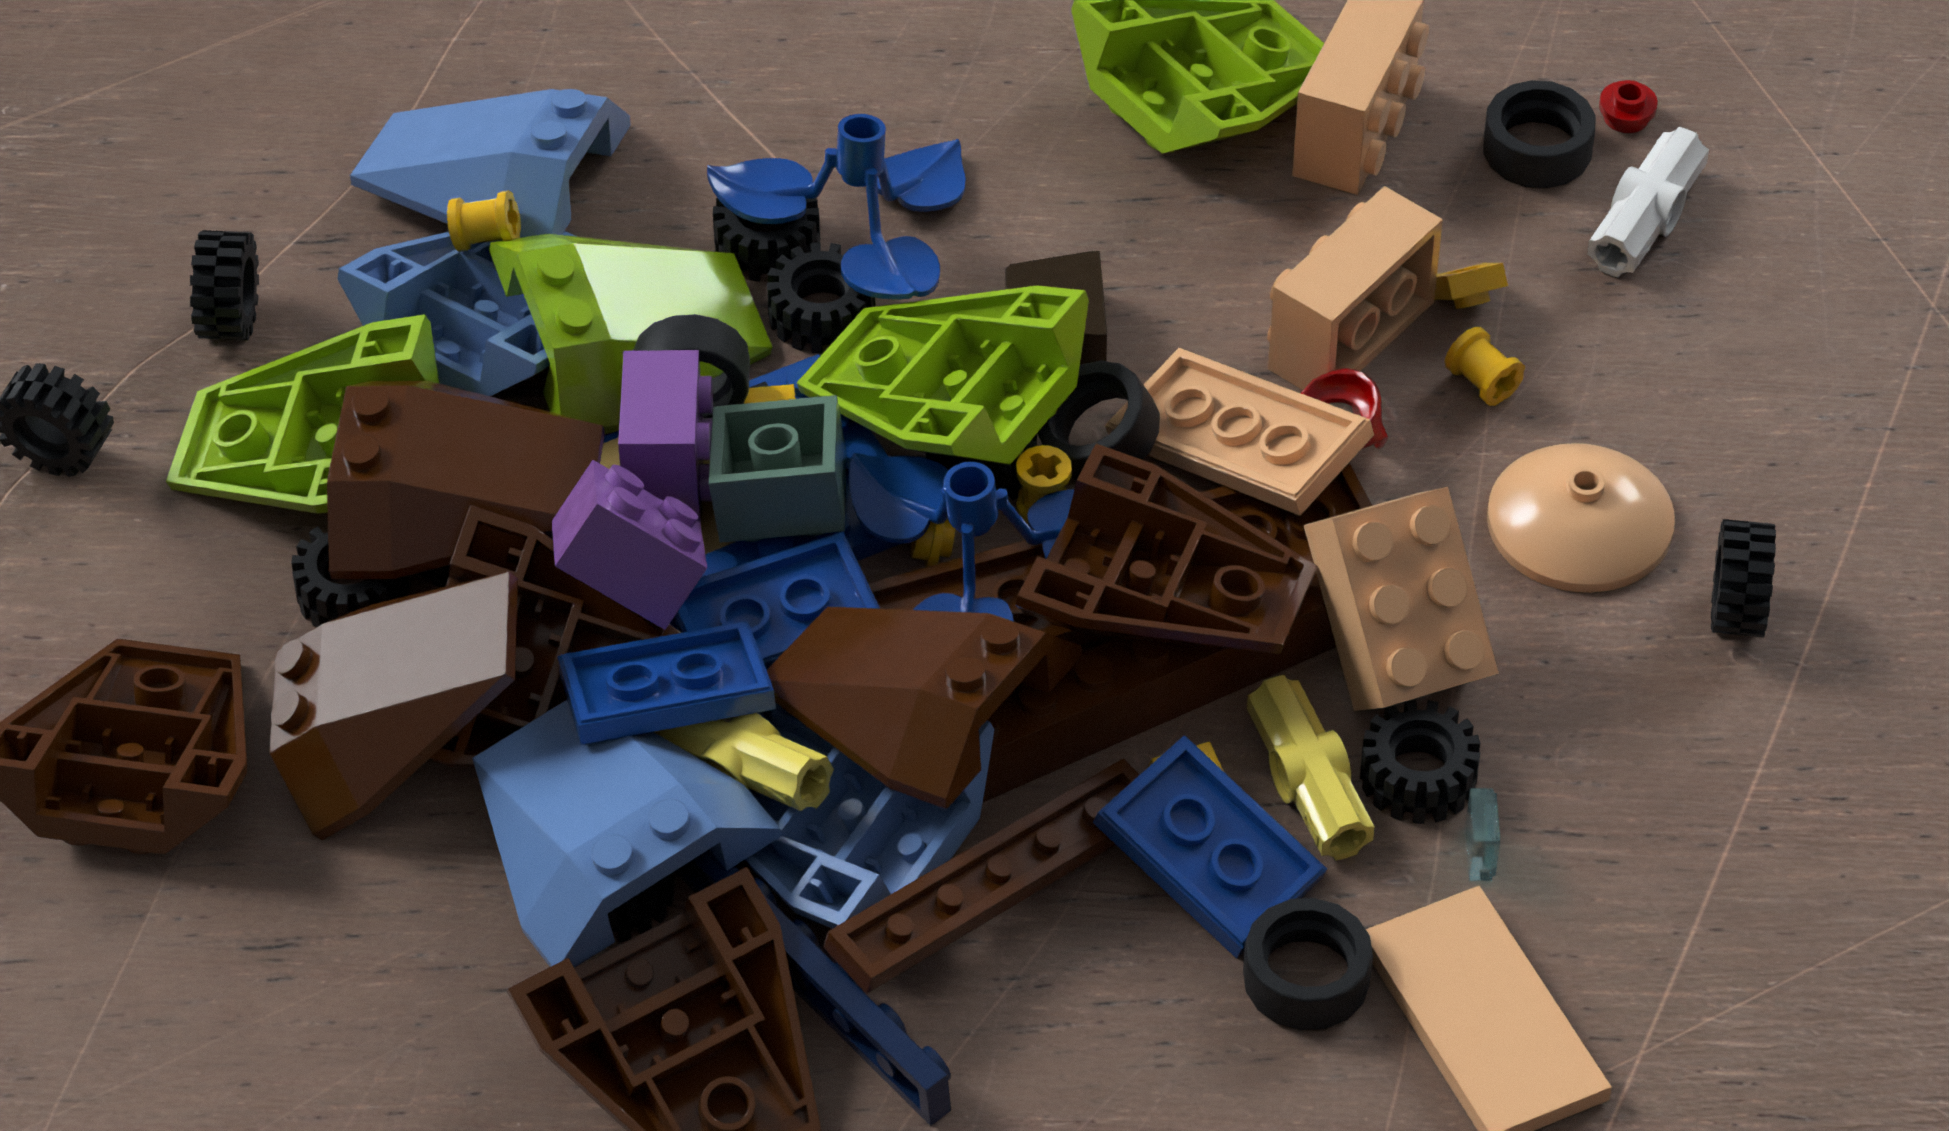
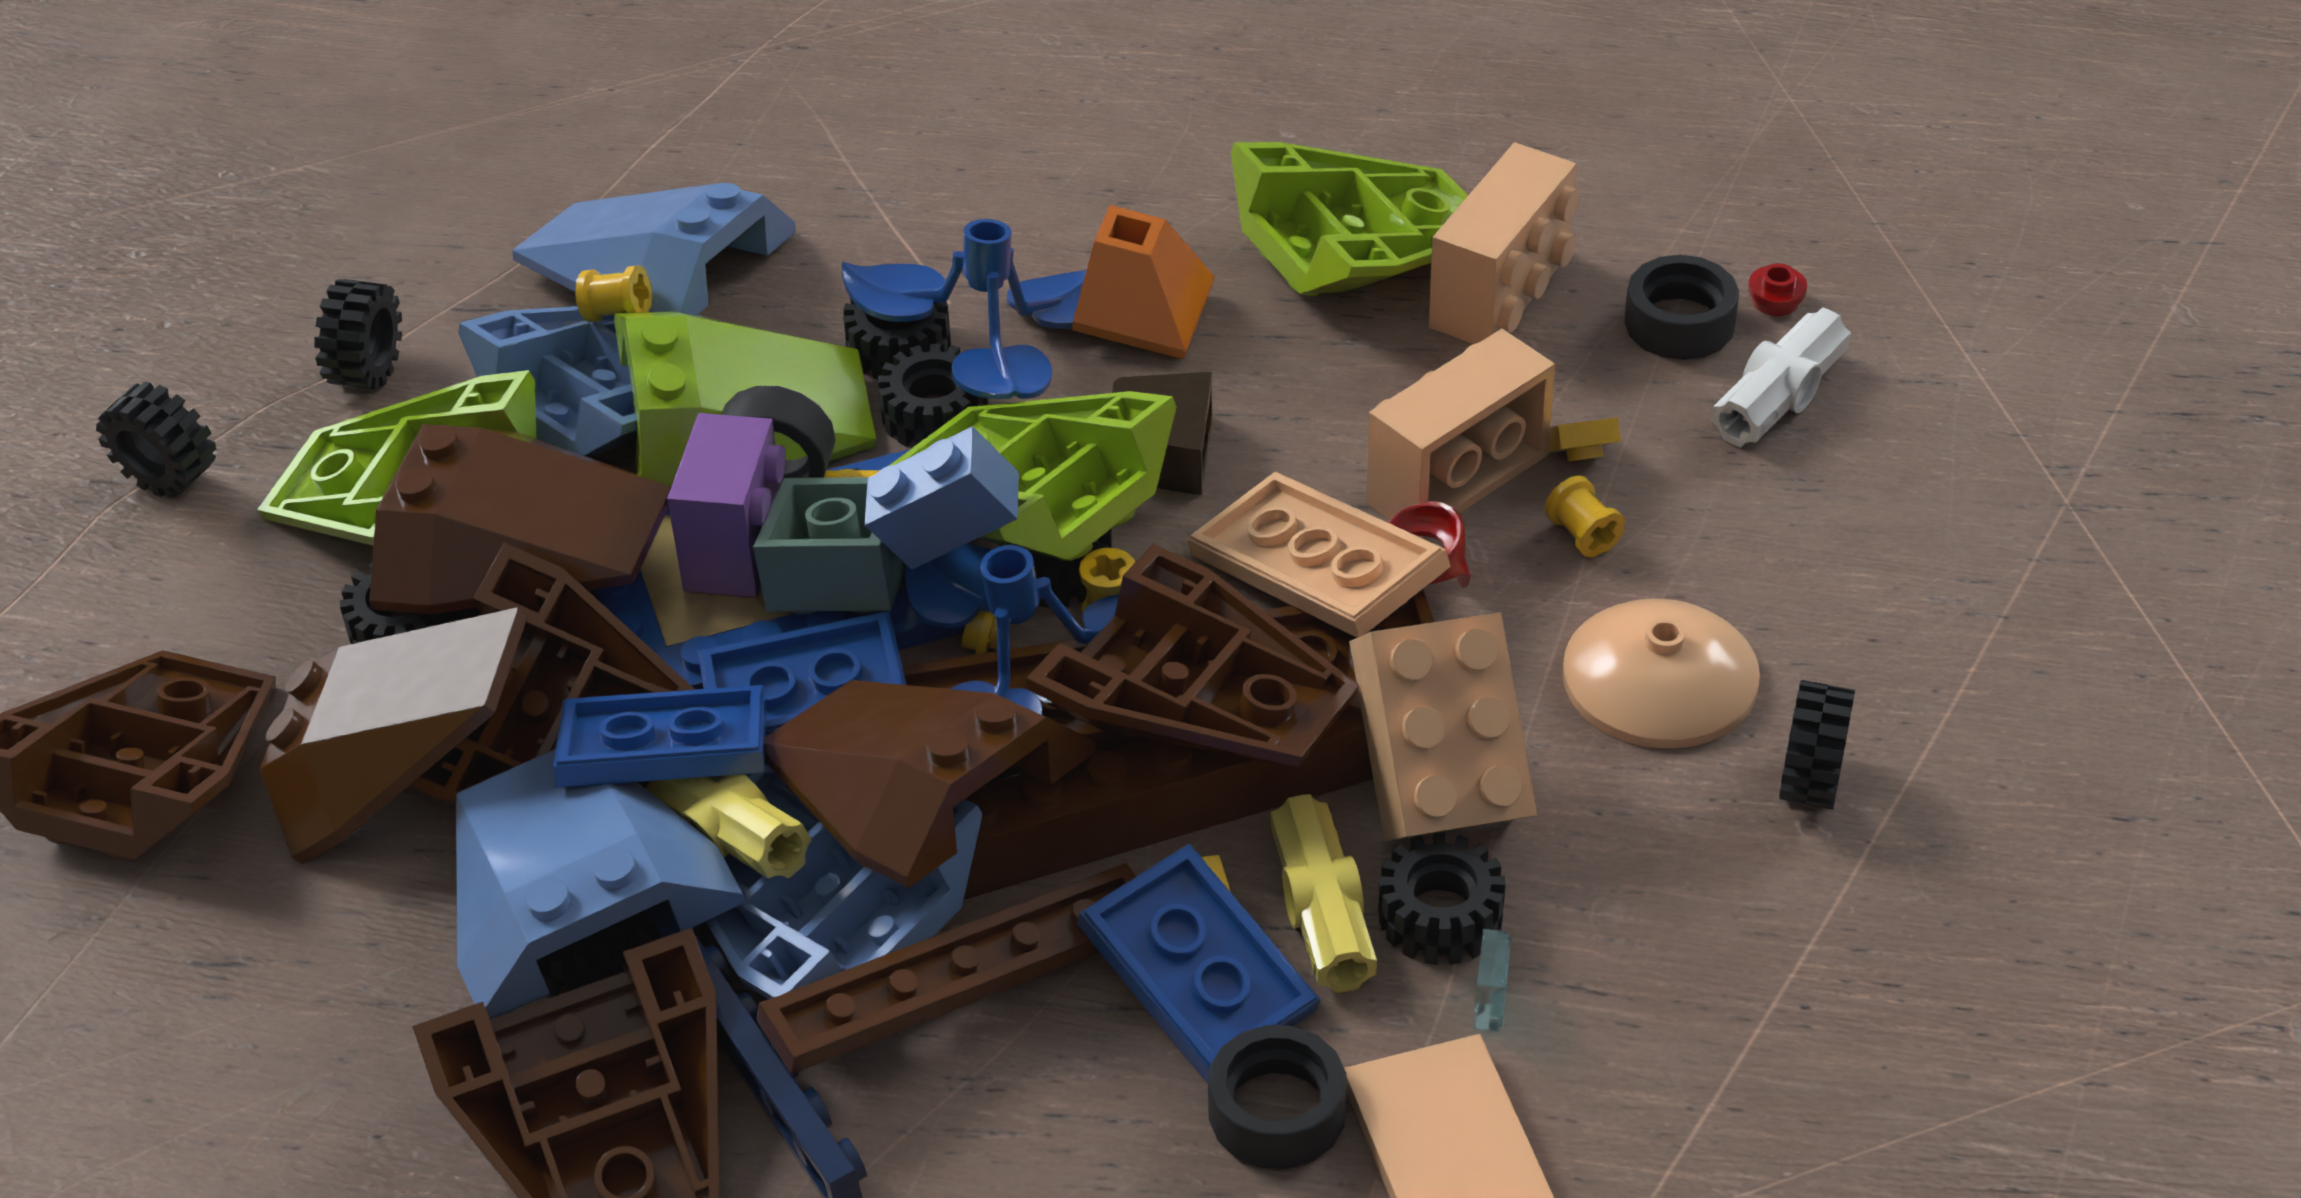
camera: 10 degrees right, 5 degrees down
(629, 543) = (657, 596): medium lavender brick -> none
(889, 419) = (942, 498): none -> medium blue brick
(1007, 160) = (1142, 285): none -> orange slope
(1098, 383) = (1176, 497): black tyre -> none

